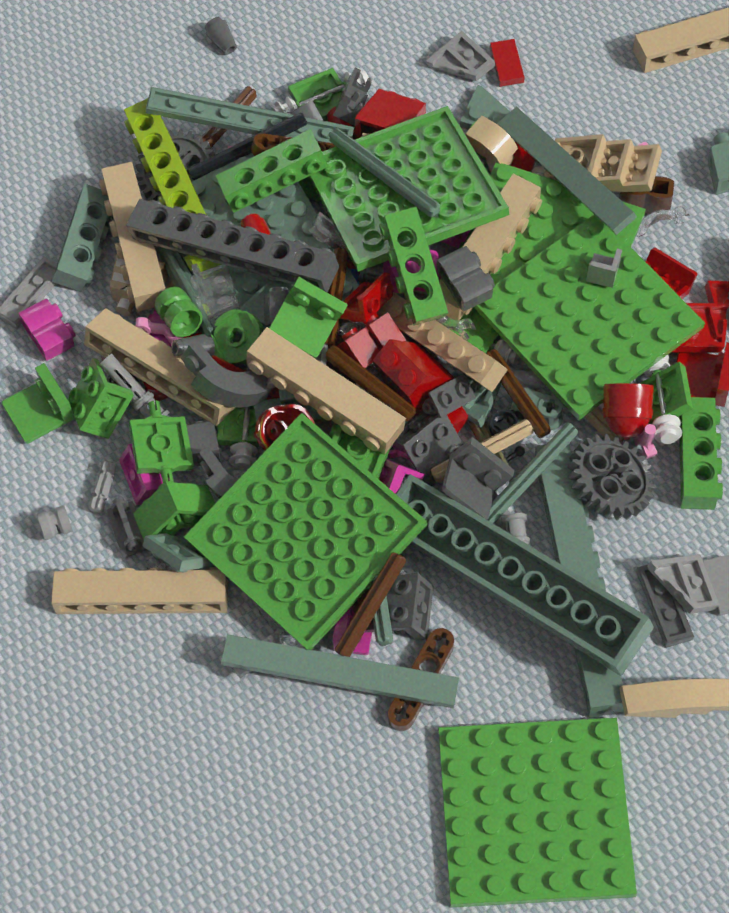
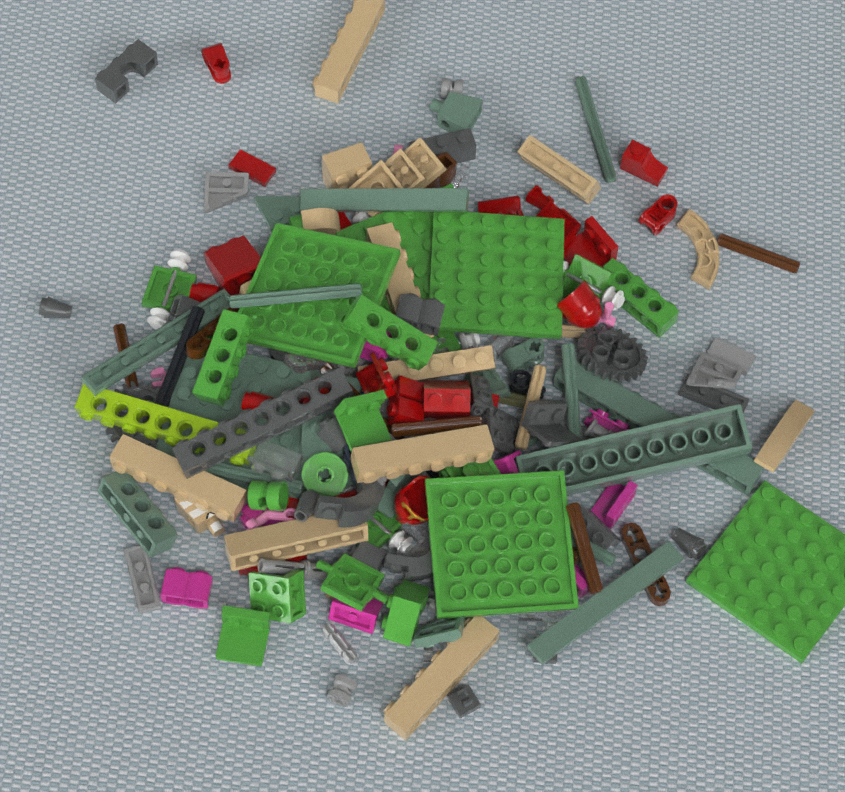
camera: 55 degrees left, 0 degrees up
(125, 527) = (385, 651): dark grey hinge -> none
(135, 631) = (464, 701): none -> dark grey tile
(352, 98) = (196, 273): dark grey hinge -> none
(459, 603) = (614, 502): none -> dark pink panel
(479, 701) = (689, 543): none -> dark grey cone
(521, 398) = (518, 357): reddish brown axle -> none
(536, 526) = (603, 420): none -> dark pink hinge
(573, 116) = (345, 166): none -> tan brick
(603, 269) = (483, 236): light grey panel -> none
(691, 185) = (457, 144): none -> dark grey brick

